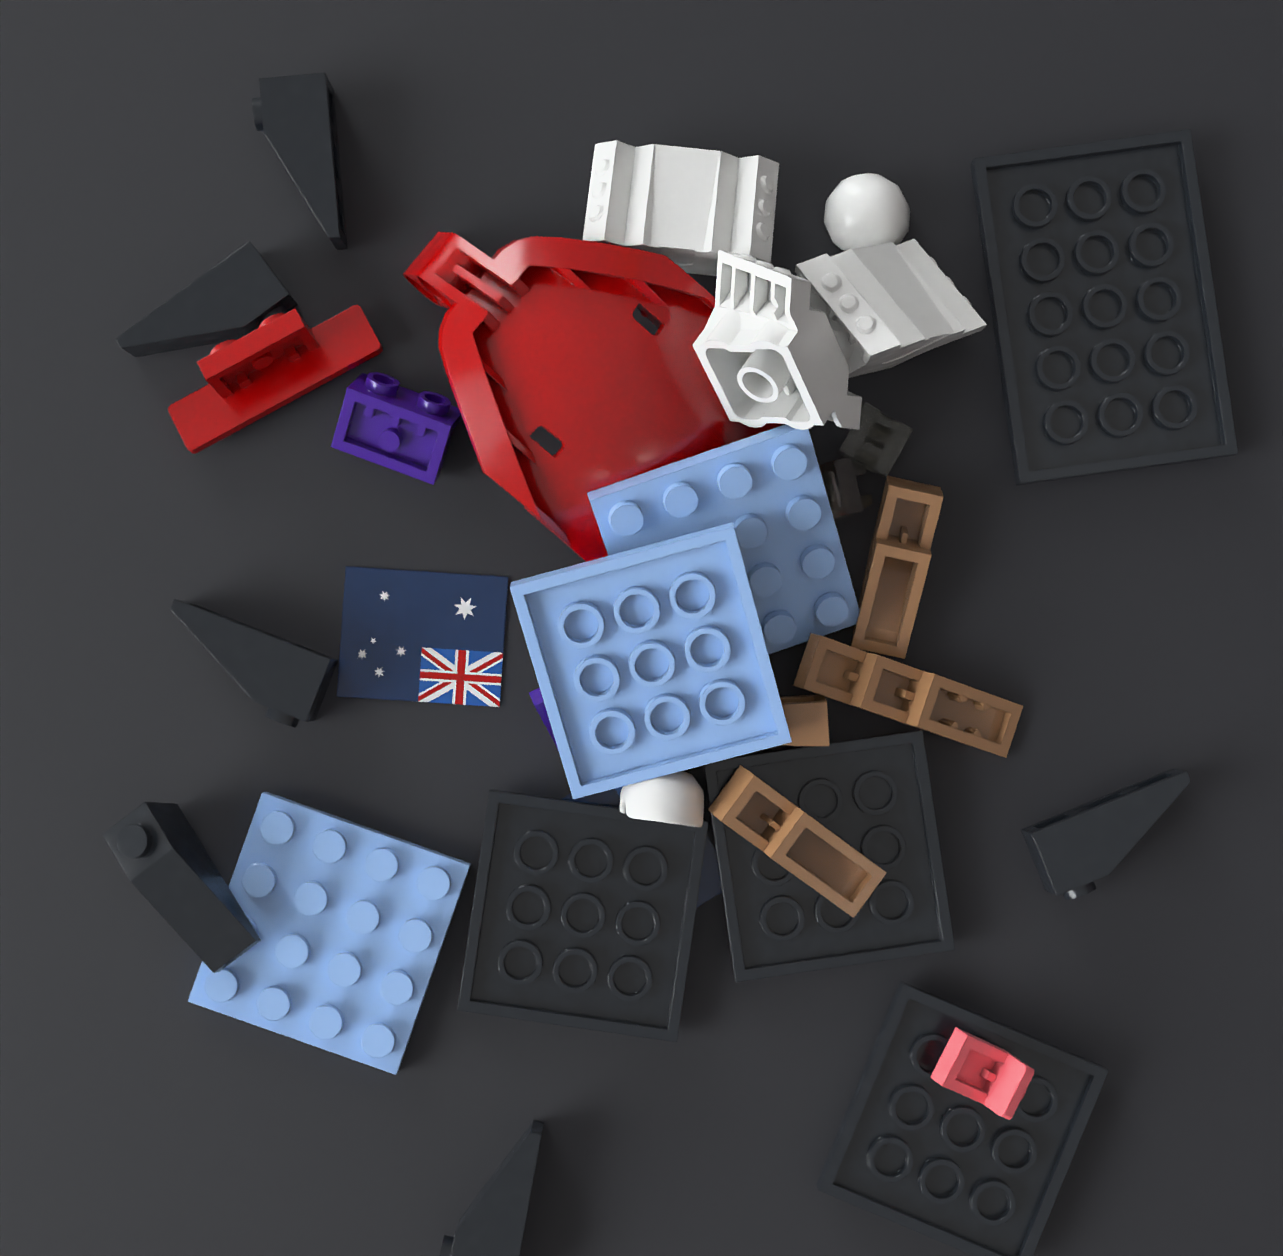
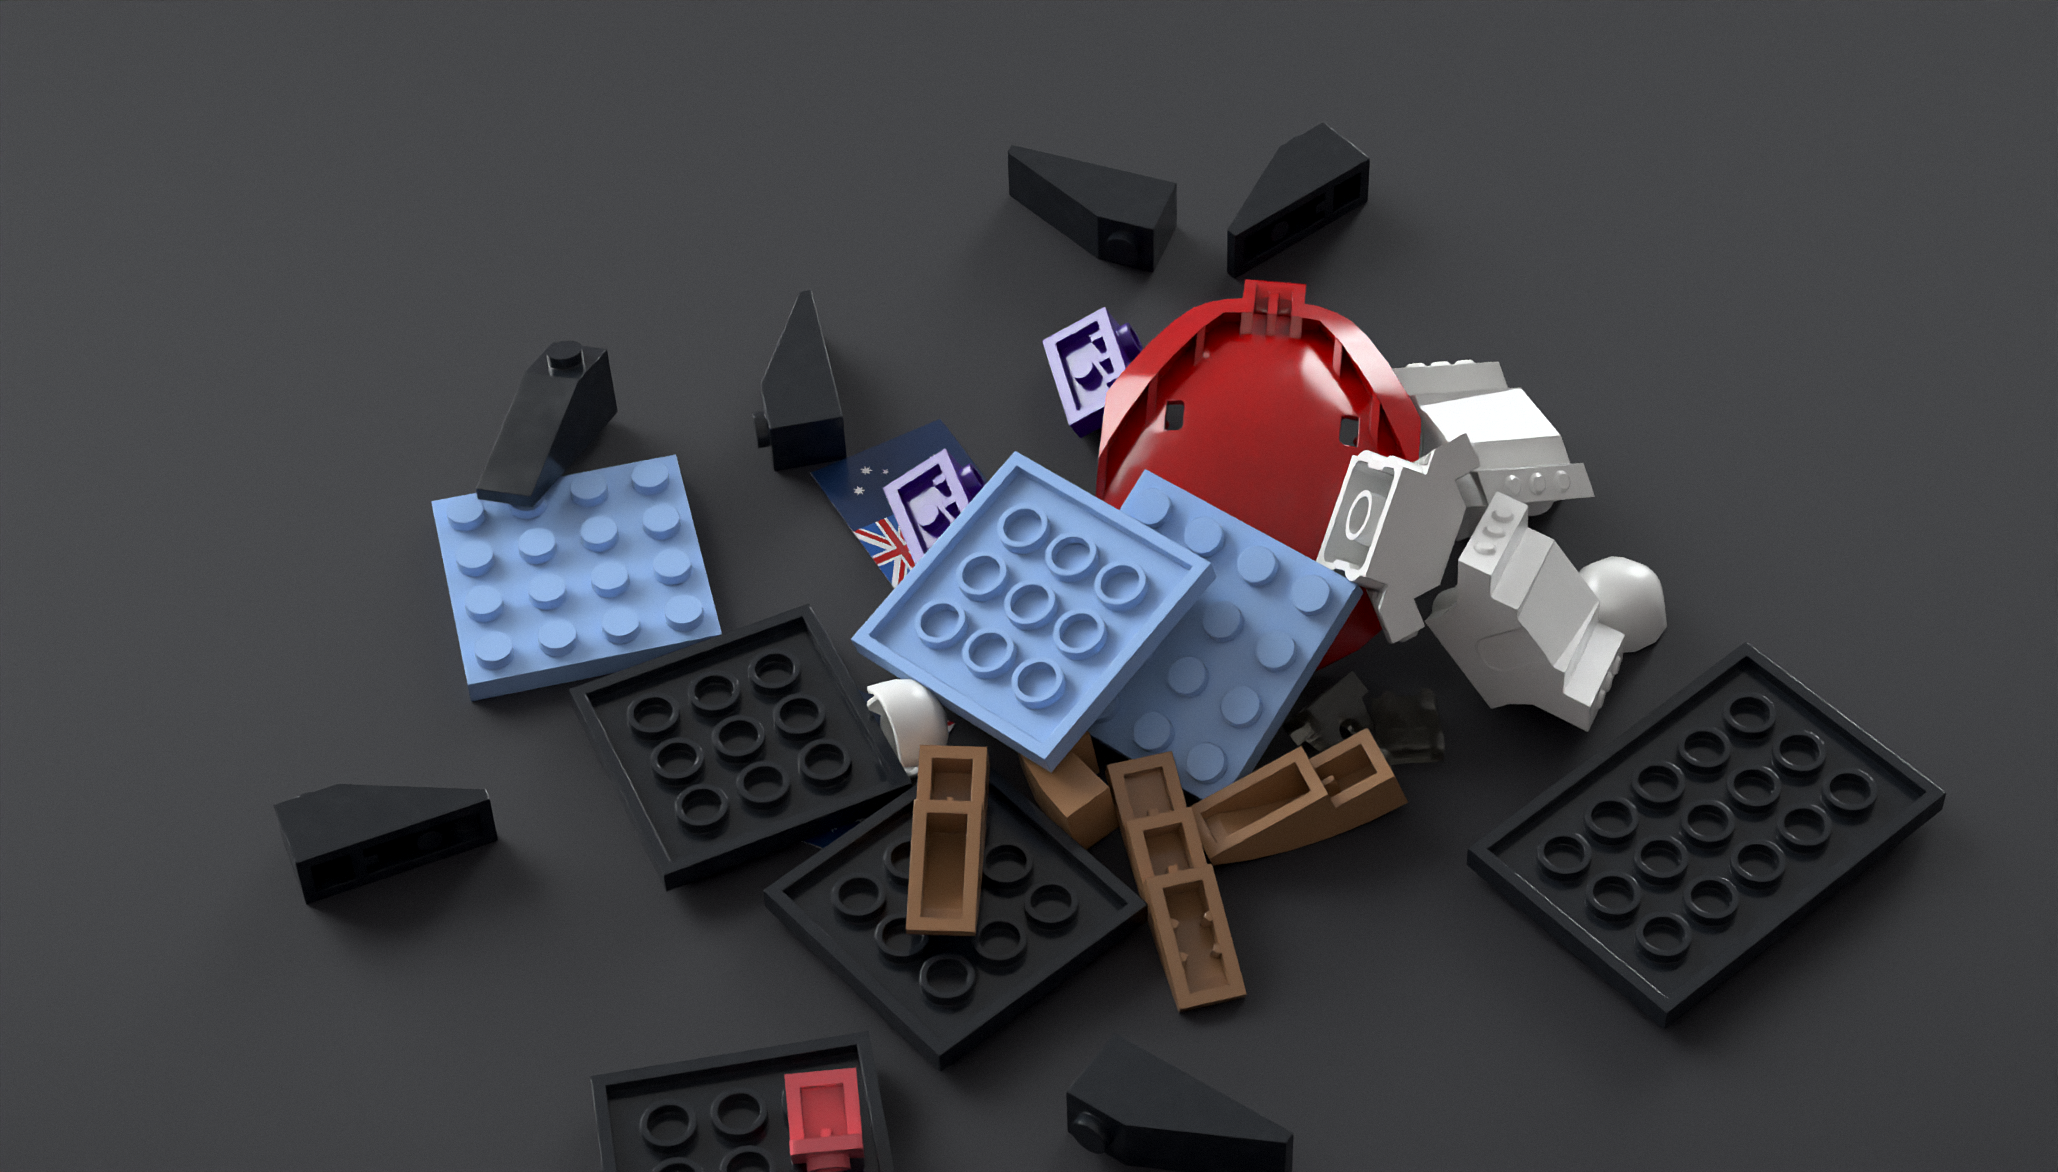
camera: 60 degrees right, 40 degrees down
(269, 371) = (1076, 259): red bracket -> none
(468, 637) = (931, 499): none -> bracket

